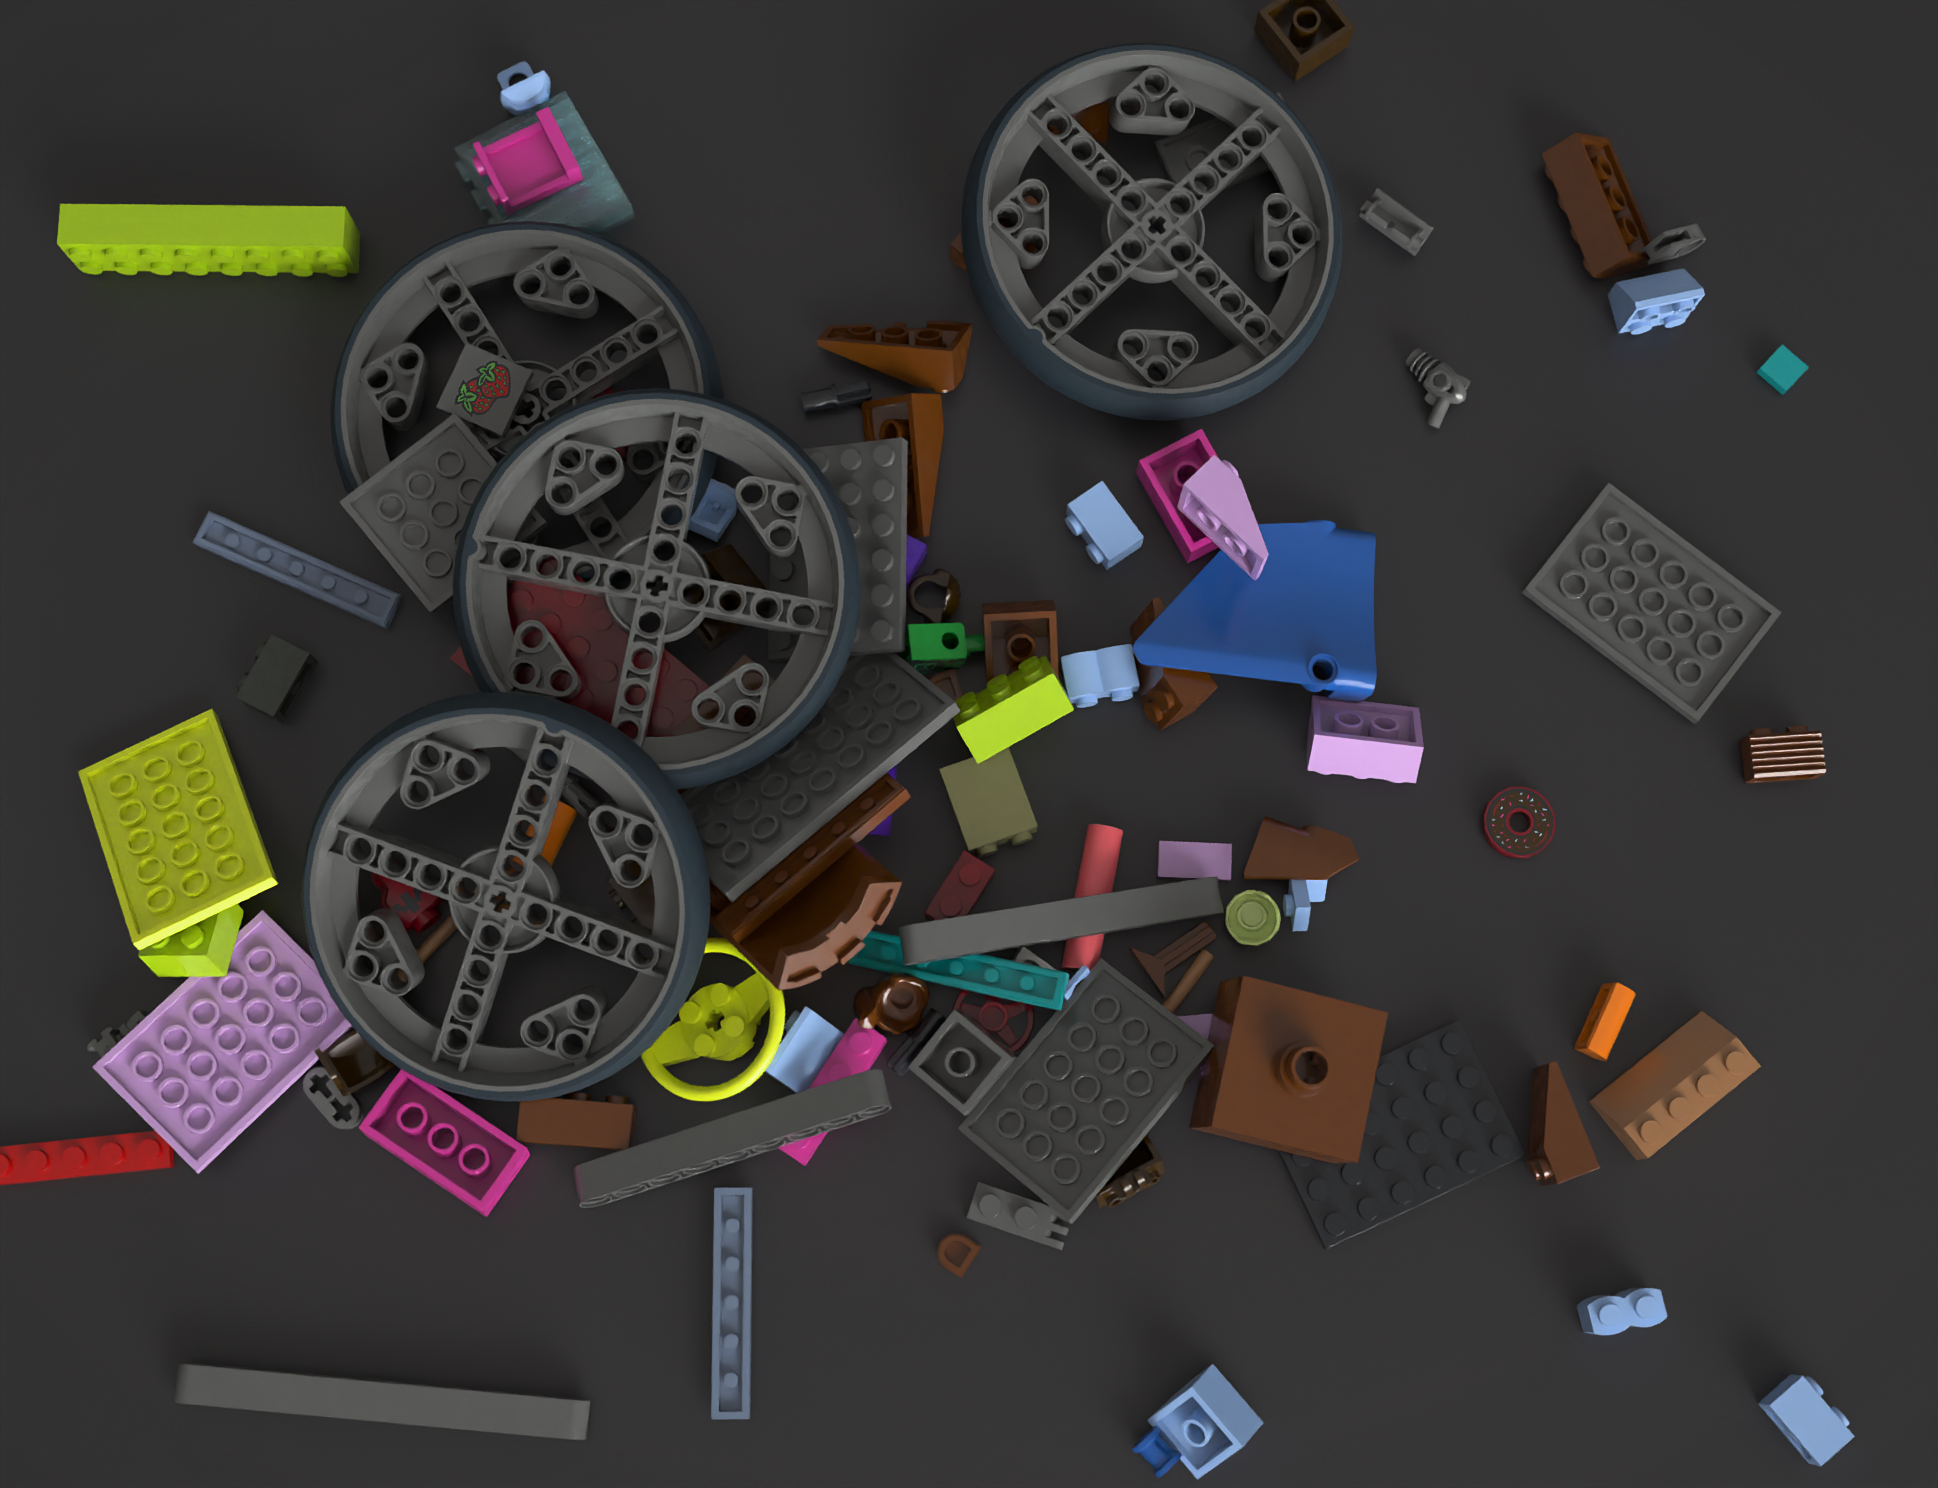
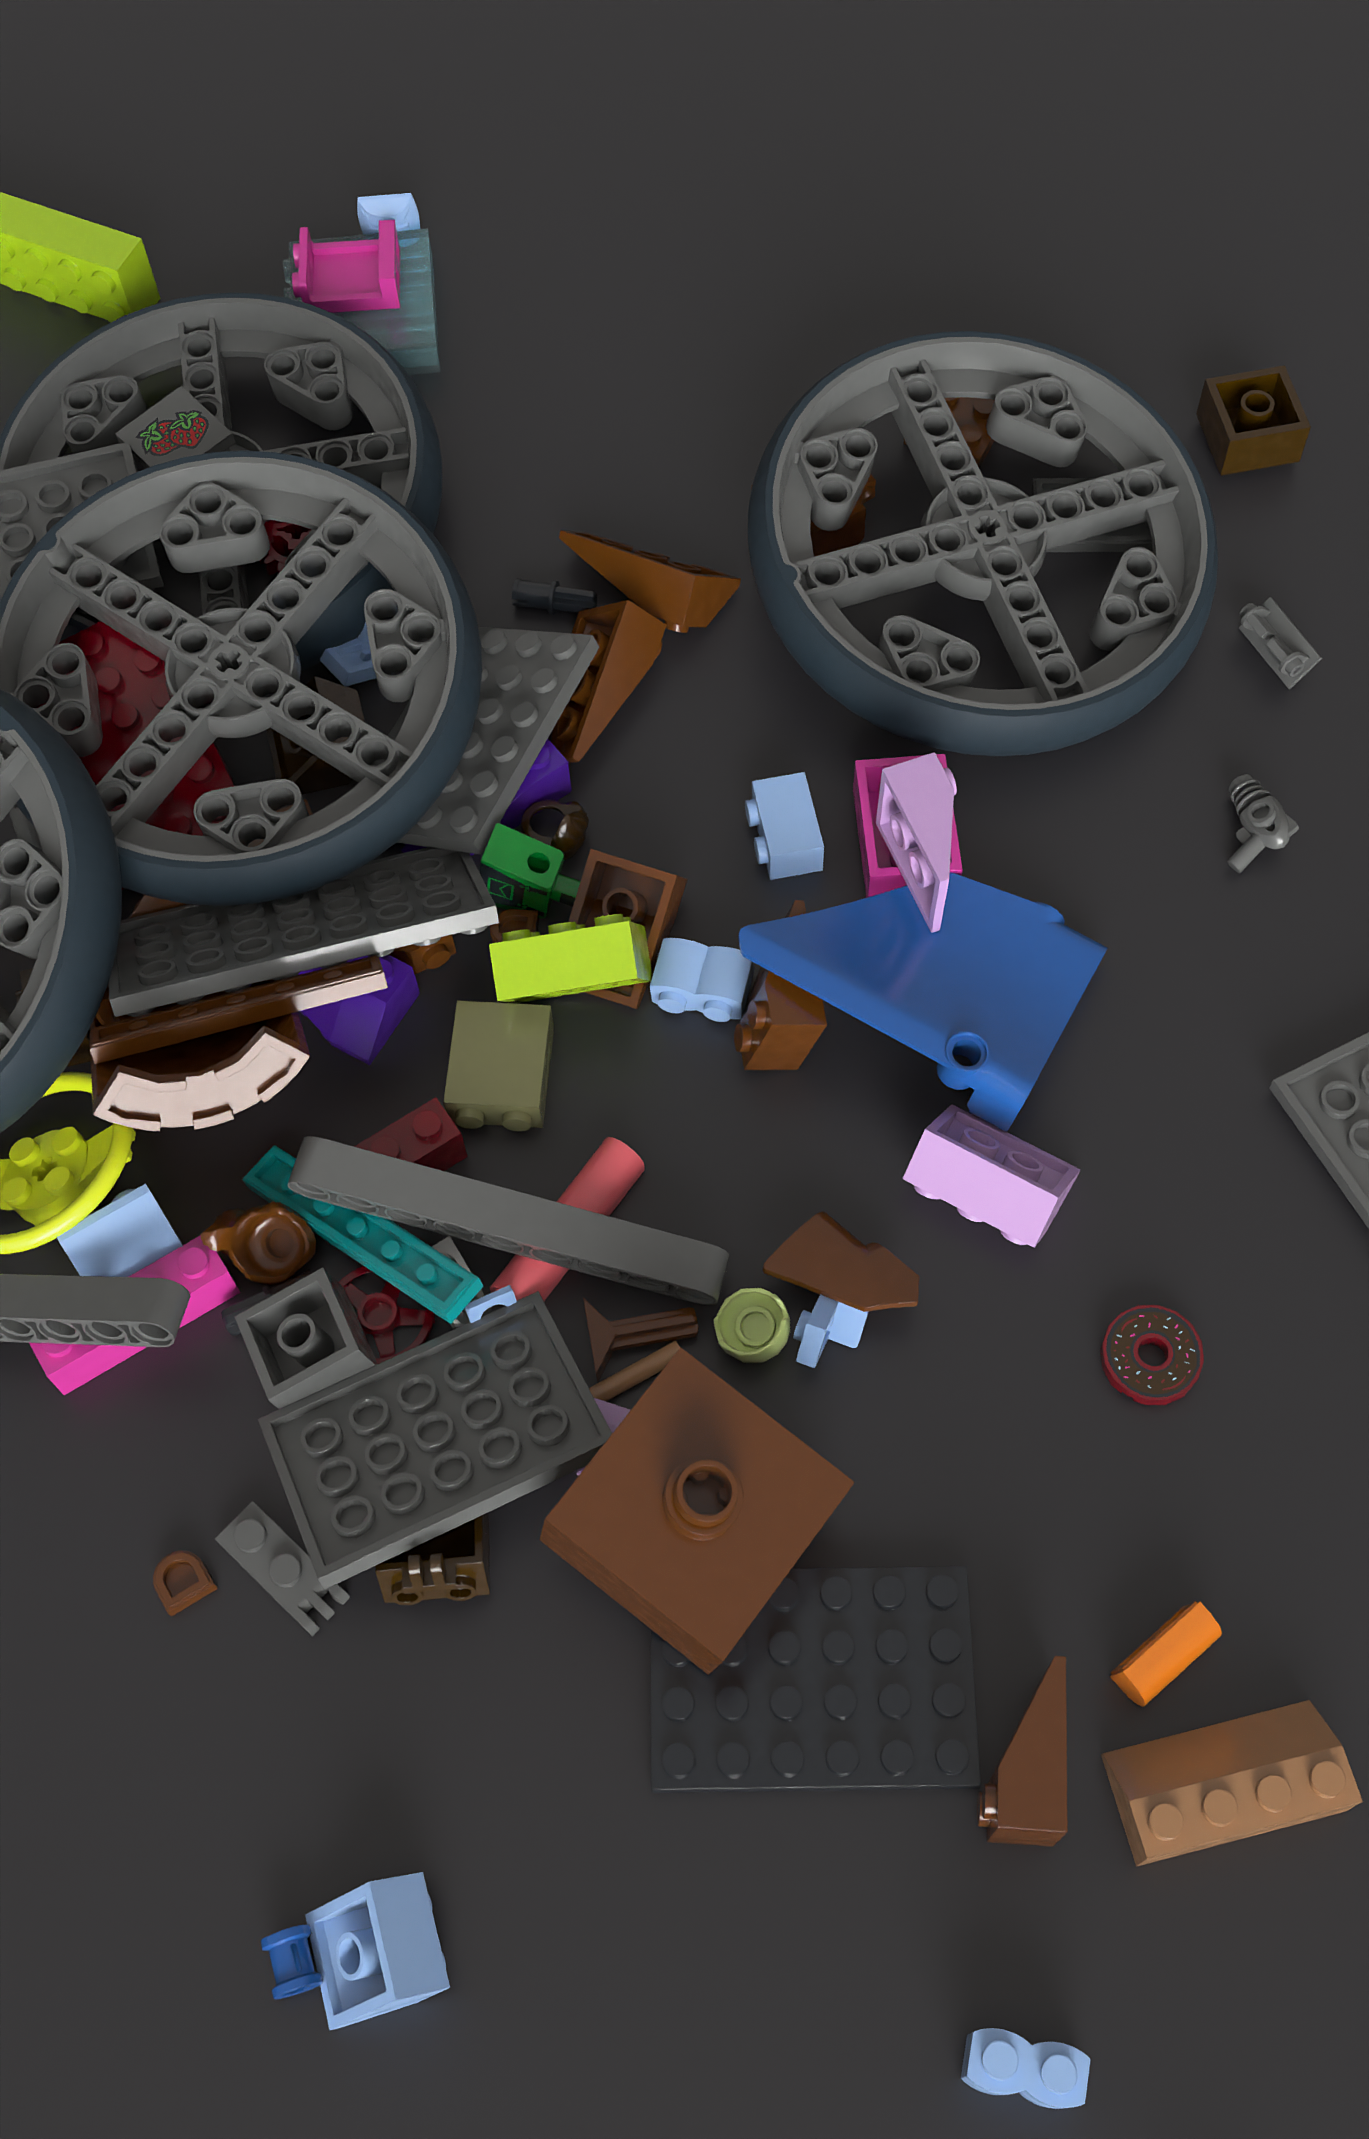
camera: 30 degrees right, 15 degrees down
(1194, 860) = (718, 1227): lavender tile -> none

